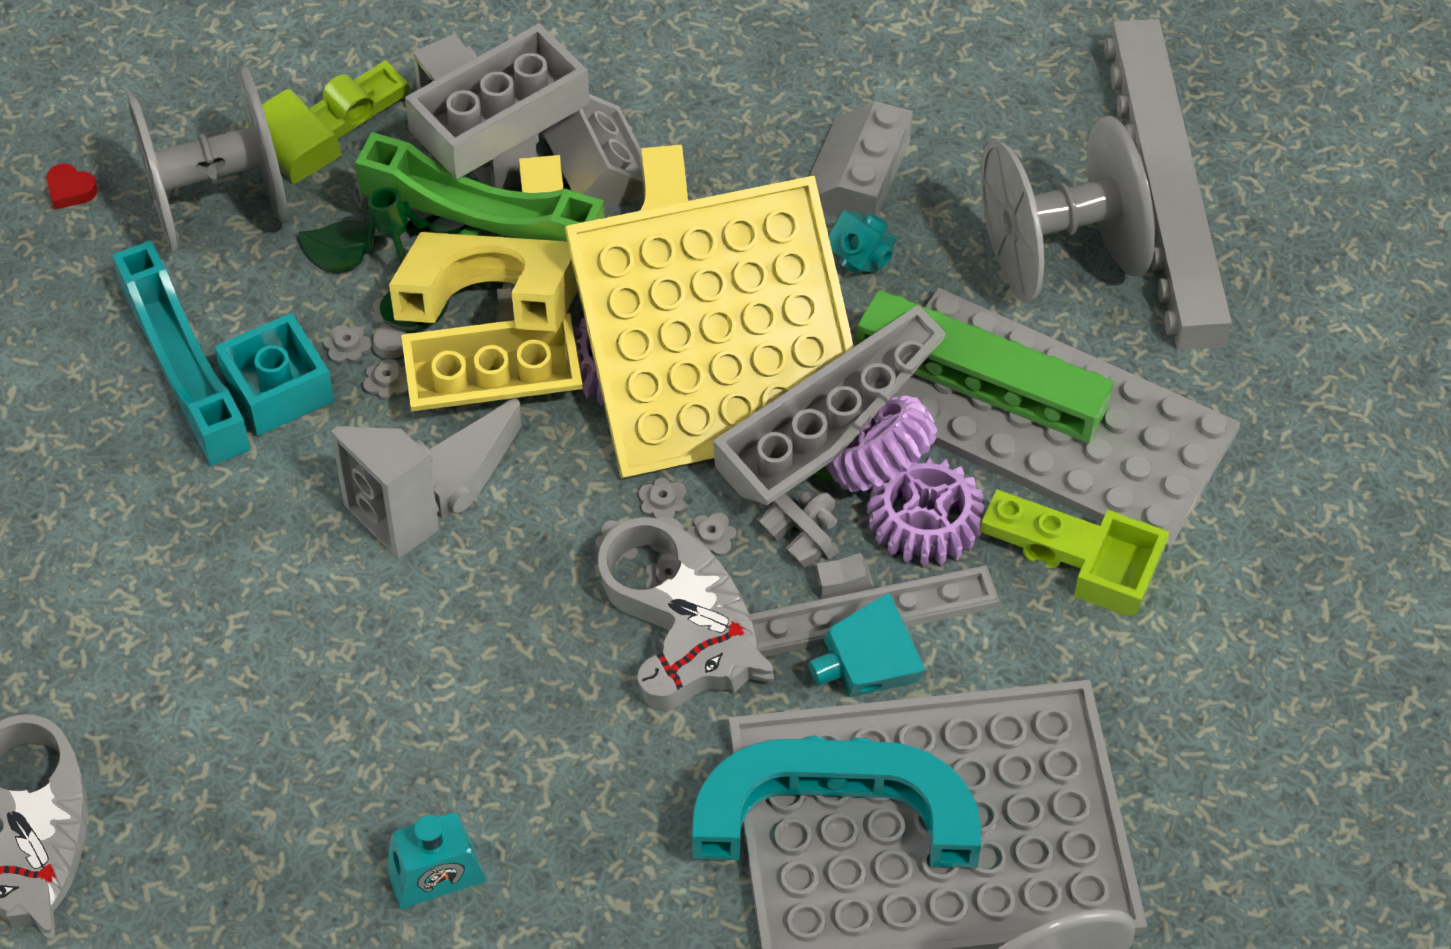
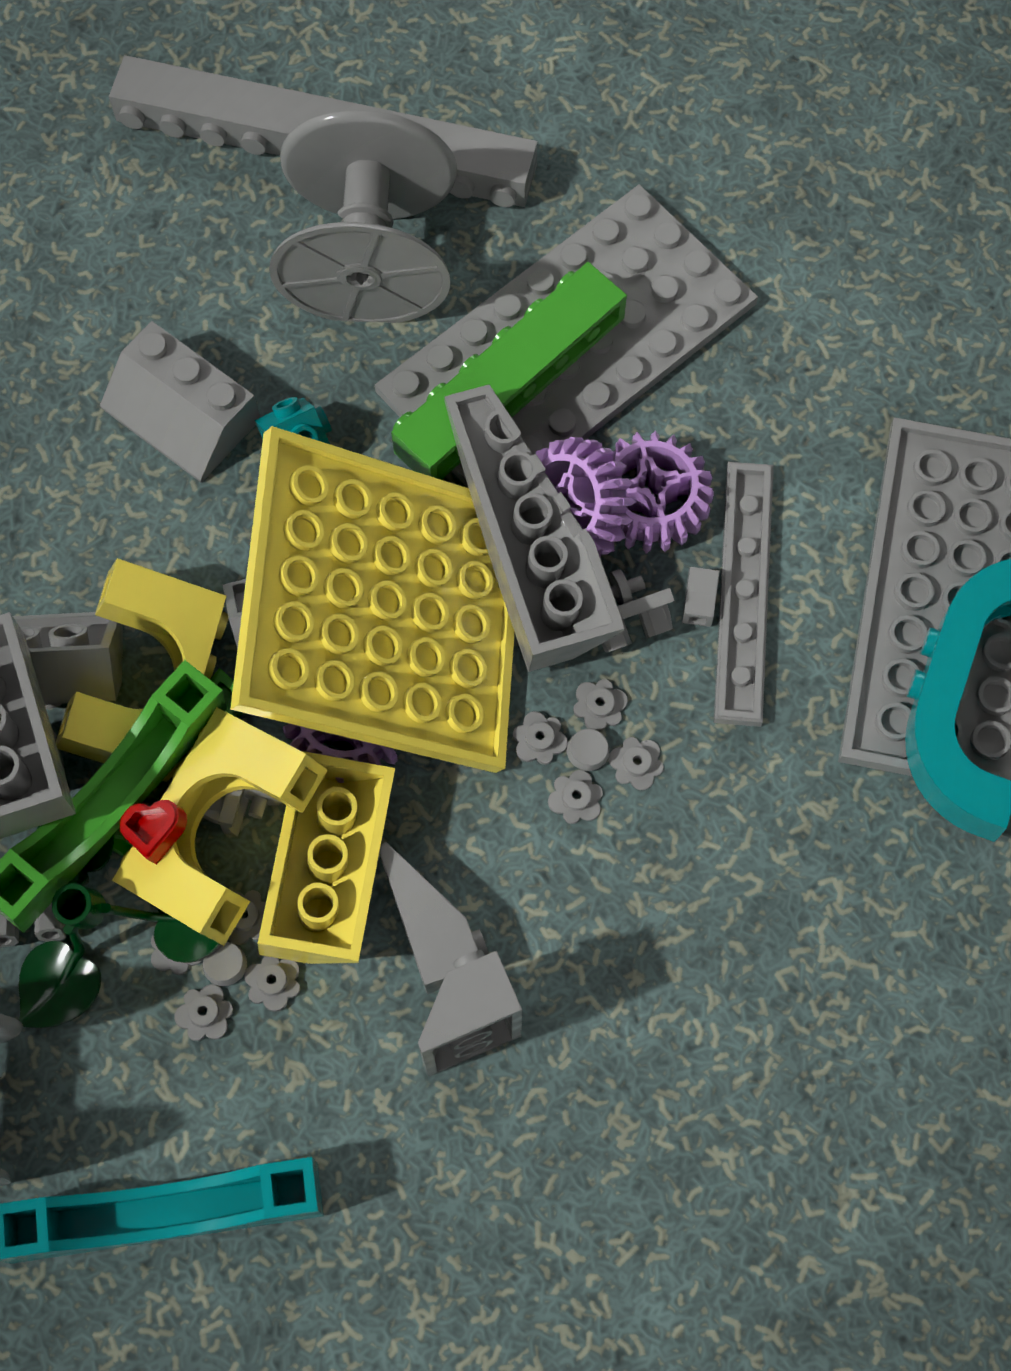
camera: 70 degrees left, 15 degrees up
(274, 374) = (236, 1105): teal brick -> none
(432, 860) = (936, 1102): teal torso -> none
(465, 236) = (153, 828): none -> red tile
(708, 622) = (730, 736): light grey animal -> none
(869, 651) = (805, 598): teal torso -> none
(1113, 557) = (758, 346): lime plate -> none

